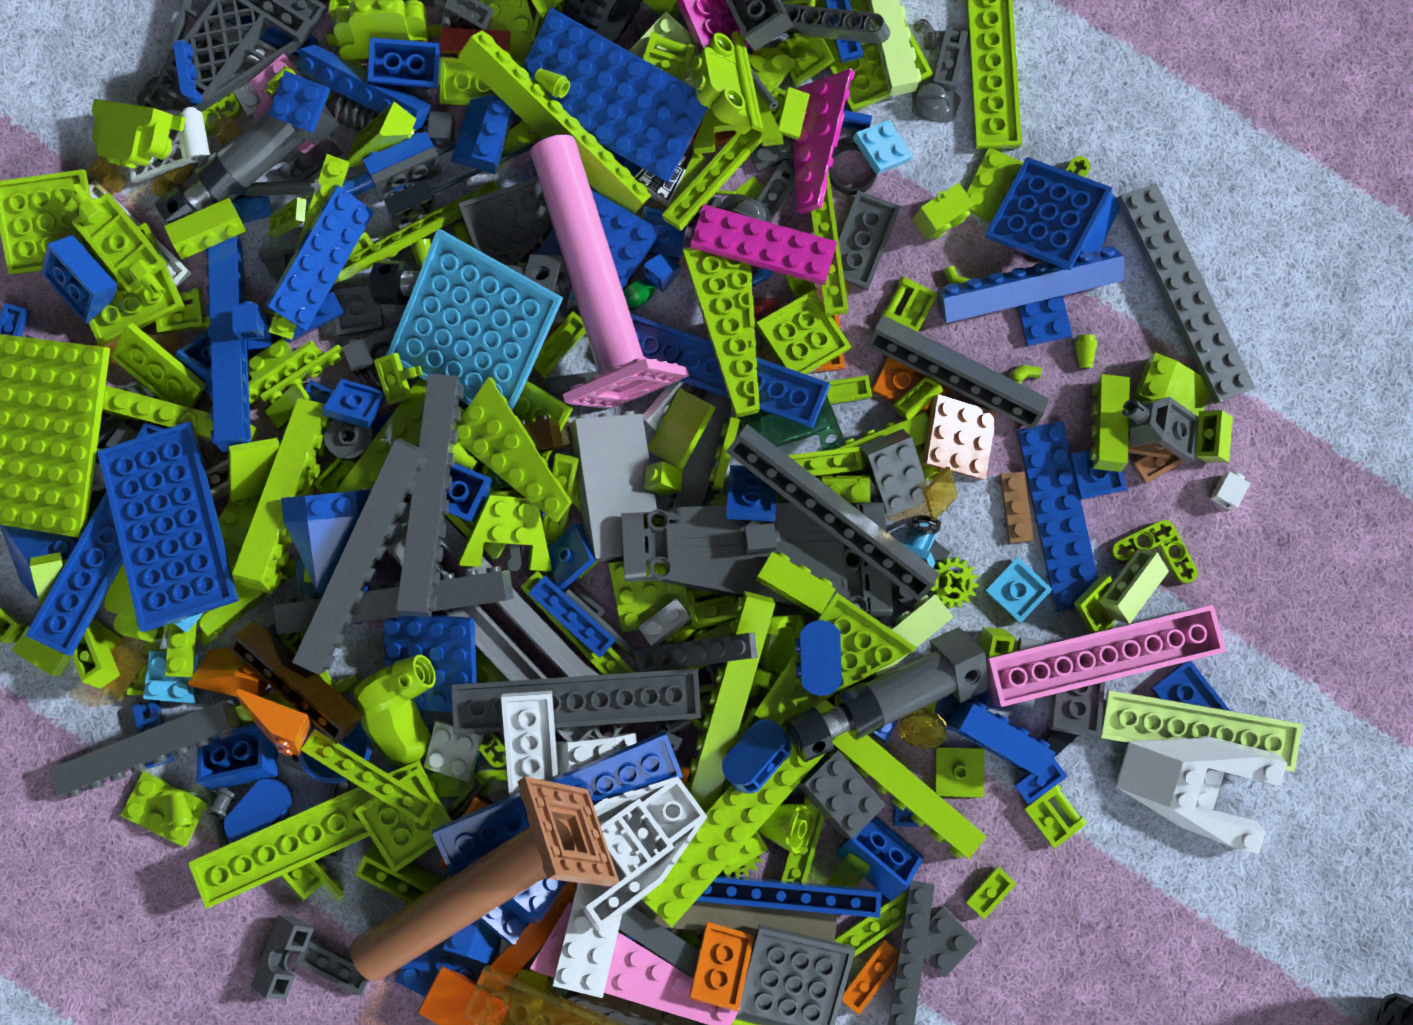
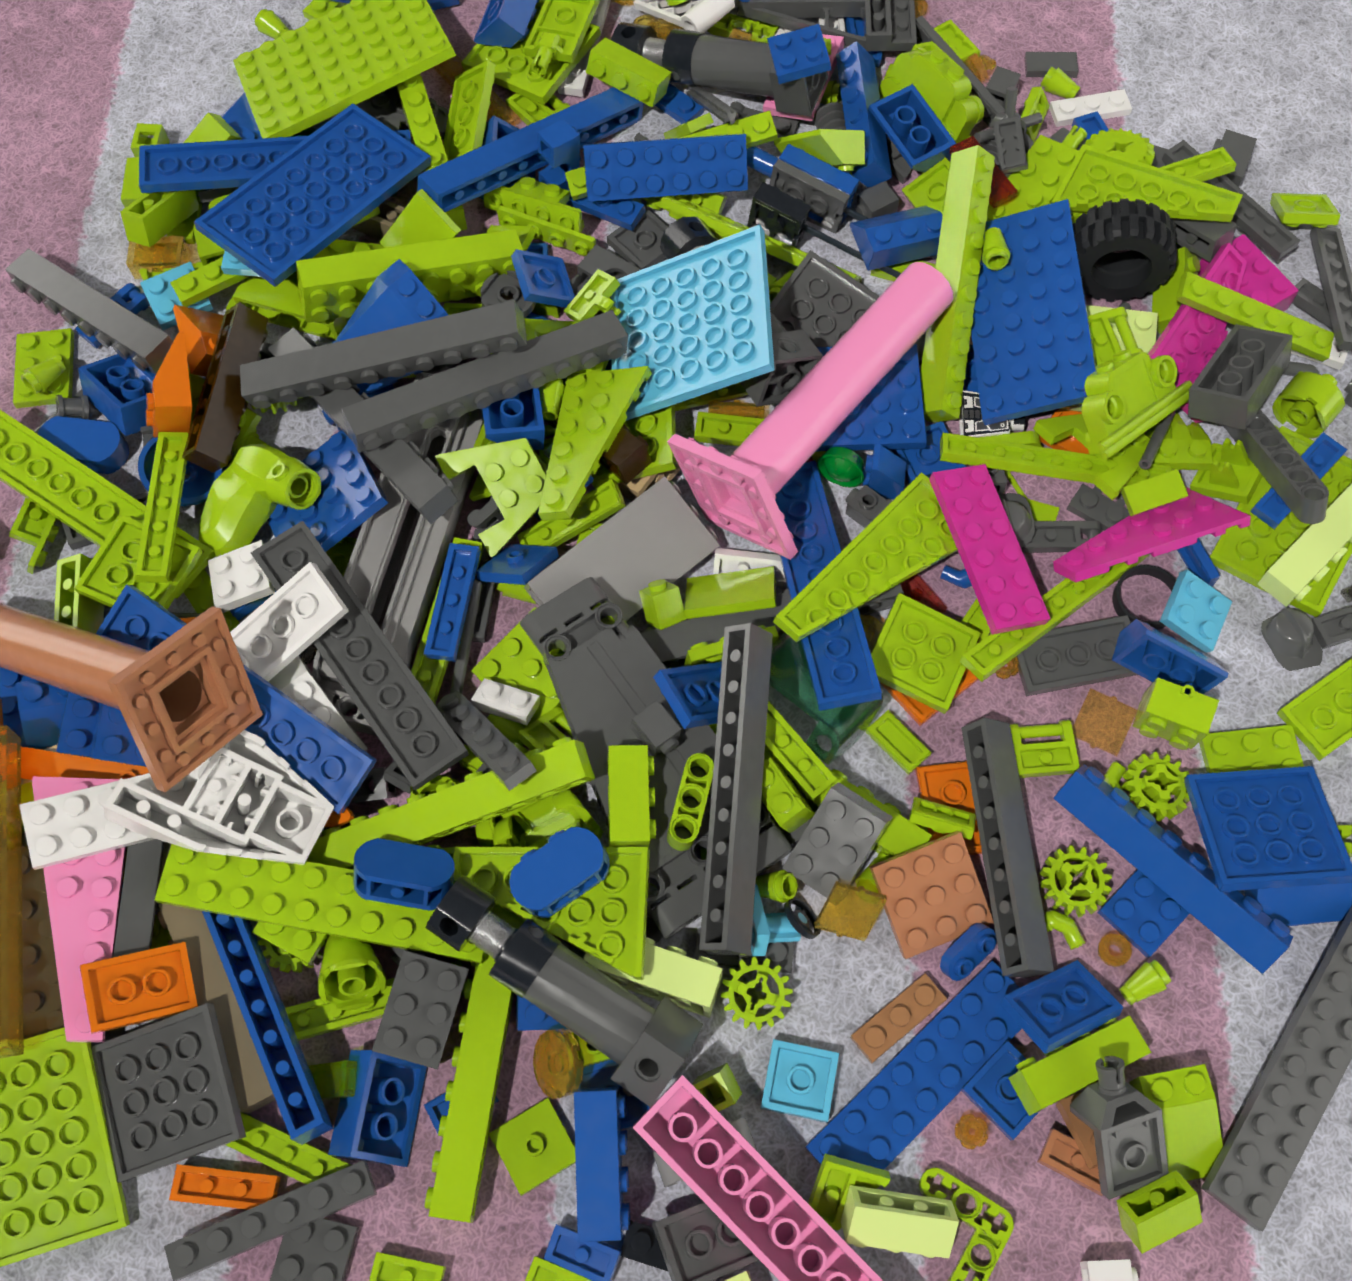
camera: 60 degrees right, 15 degrees down
(682, 303) = (863, 513): none -> dark grey brick
(826, 559) = (699, 789): none -> lime beam
(898, 525) = (777, 886): none -> lime cone
(907, 190) = (1162, 656): none -> blue slope
(914, 256) = (1103, 722): none -> clear yellow piece
(968, 247) = (1157, 785): none -> lime gear
(1000, 336) = (1065, 872): none -> lime gear
(1005, 441) = (968, 952): none -> blue plate
(1060, 348) = (1123, 946): none -> clear yellow plate
(1073, 409) = (1061, 1006): none -> blue plate
(1100, 510) = (962, 1131): none -> clear yellow plate

